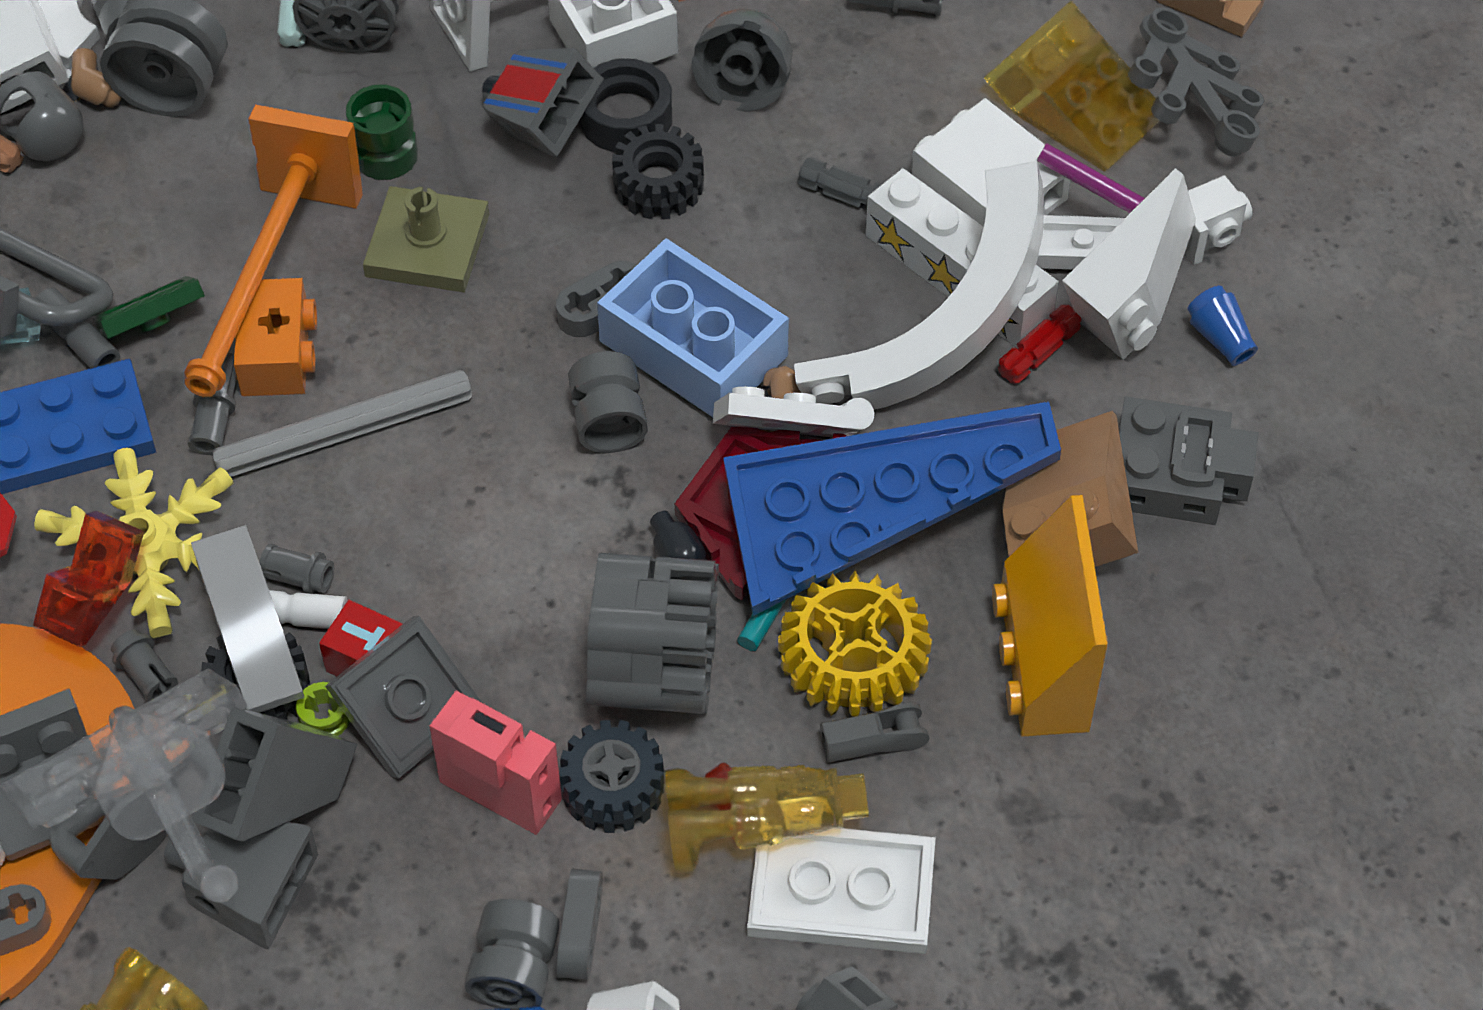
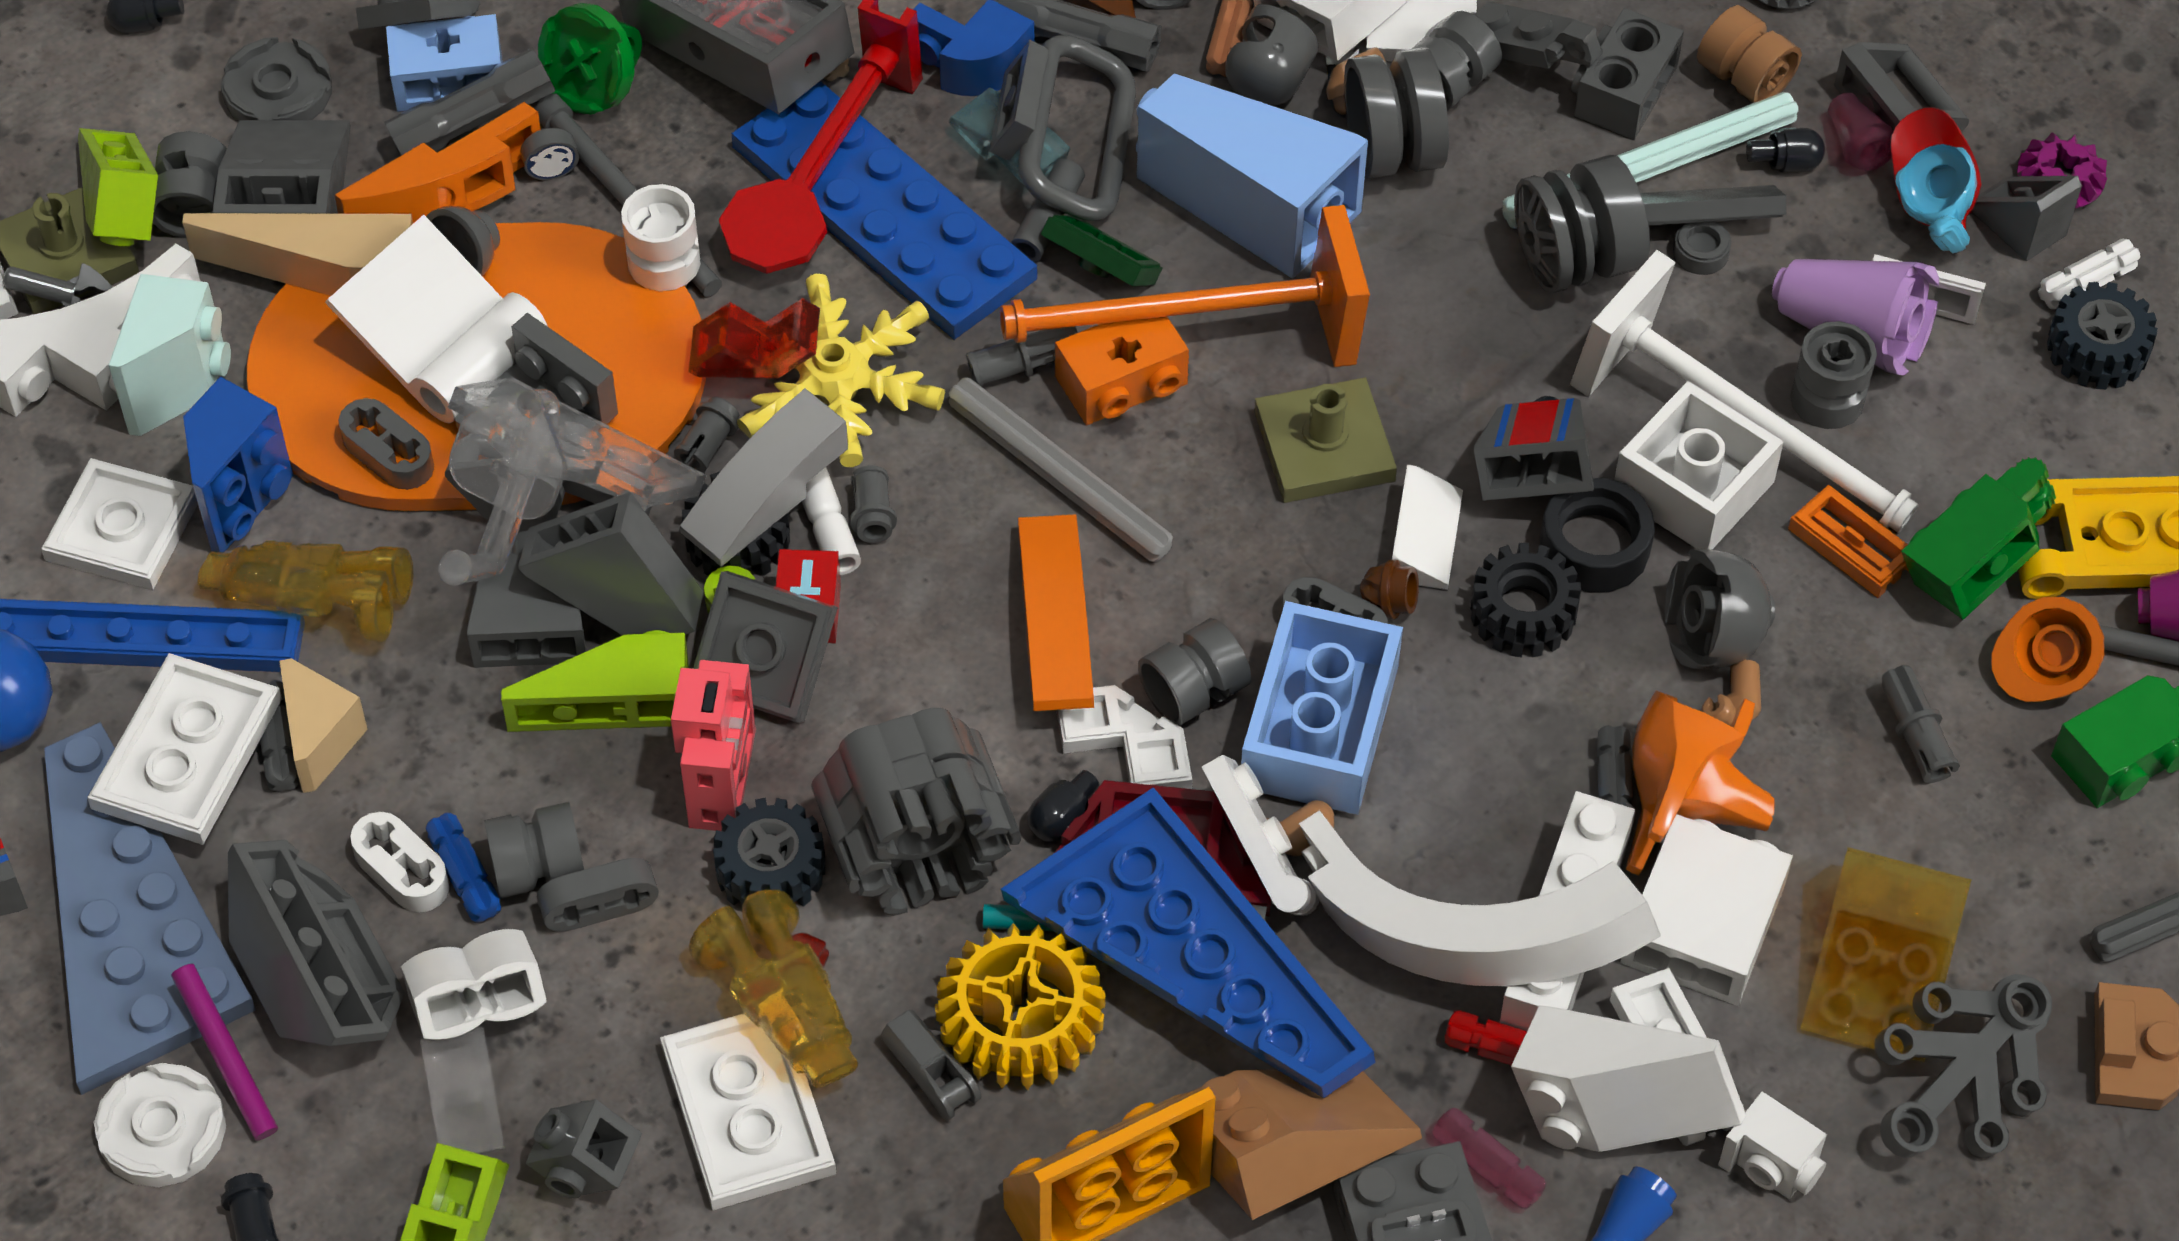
camera: 65 degrees right, 0 degrees up
(147, 170) = (1248, 167): none -> light blue slope
(376, 817) = (610, 686): none -> lime slope
(383, 131) = (1419, 337): dark green wheel -> none
(487, 472) = (1055, 613): none -> orange slope
(552, 211) = (1427, 526): none -> white slope
(598, 247) = (1391, 588): none -> reddish brown plate
(647, 466) = (1151, 745): none -> white tile
(820, 87) = (1743, 685): none -> medium nougat arm
(874, 129) = (1688, 771): none -> orange piece
(1089, 178) = (1734, 1003): magenta bar -> none
(1165, 382) = (1490, 1158): none -> clear pink axle

